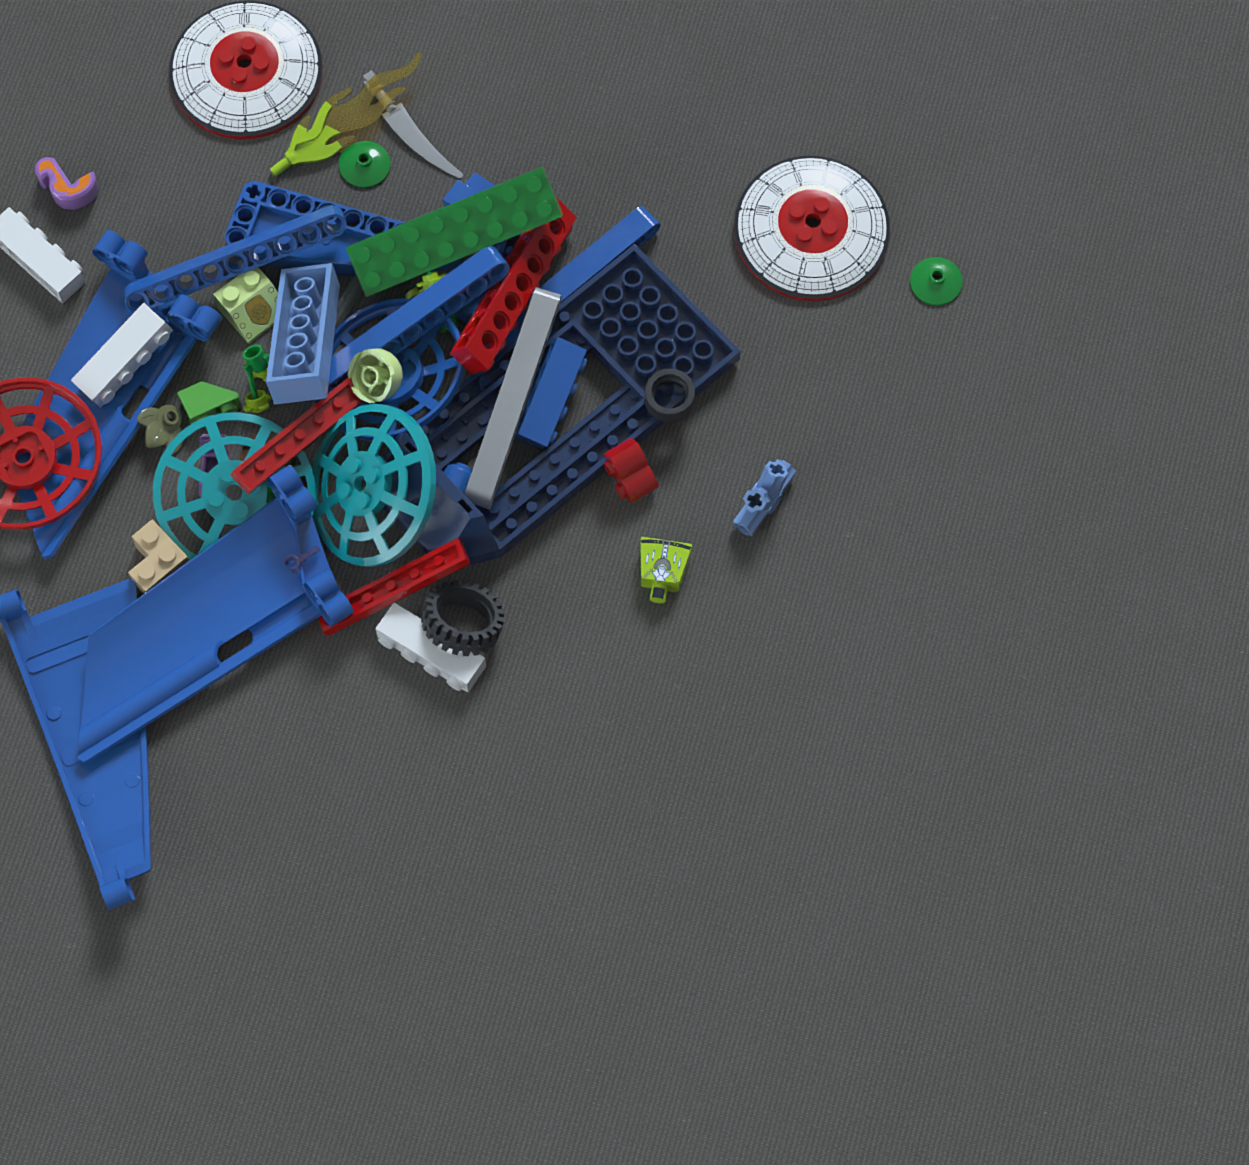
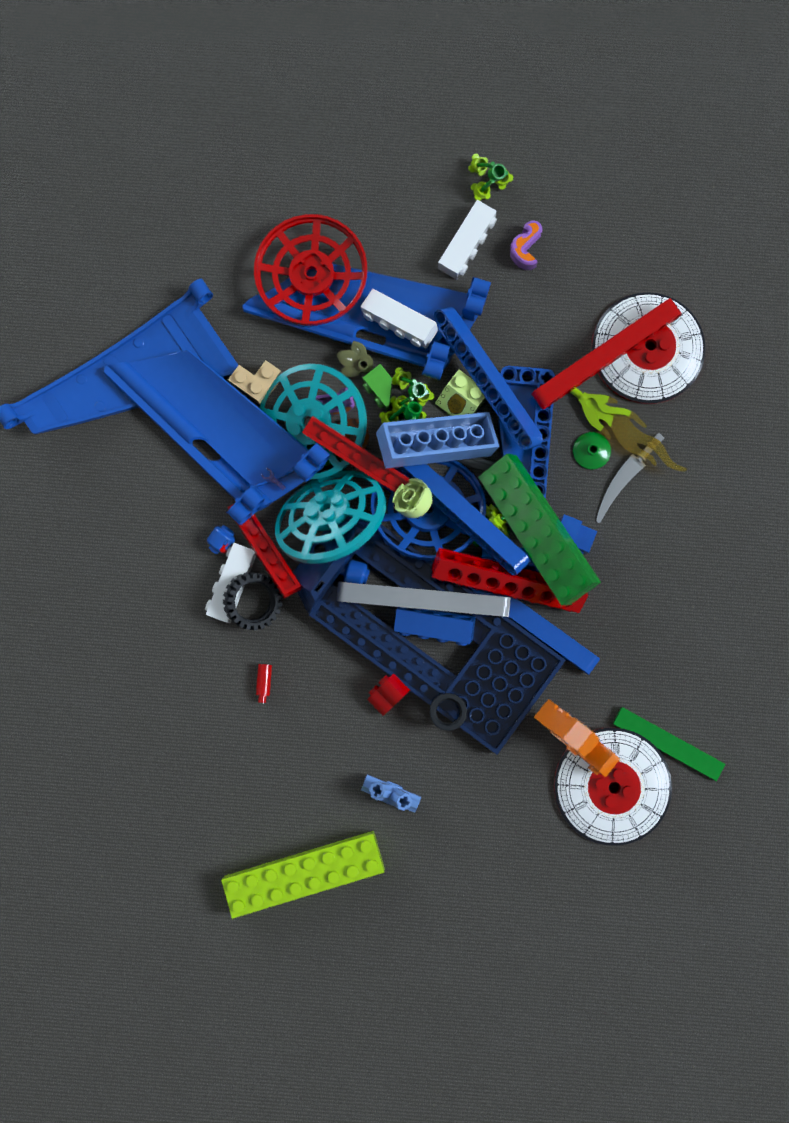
camera: 85 degrees right, 15 degrees up
(231, 351) = (416, 390): none -> plant
(243, 111) = (606, 353): none -> red beam
(366, 650) = (221, 539): none -> blue head
(577, 633) = (263, 682): none -> red cylinder
(663, 566) = (323, 731): lime torso -> none
(736, 242) = (577, 738): none -> orange wedge
(772, 149) = (670, 744): none -> green tile
(850, 628) = (303, 874): none -> lime brick
(936, 291) = (586, 877): green dish -> none

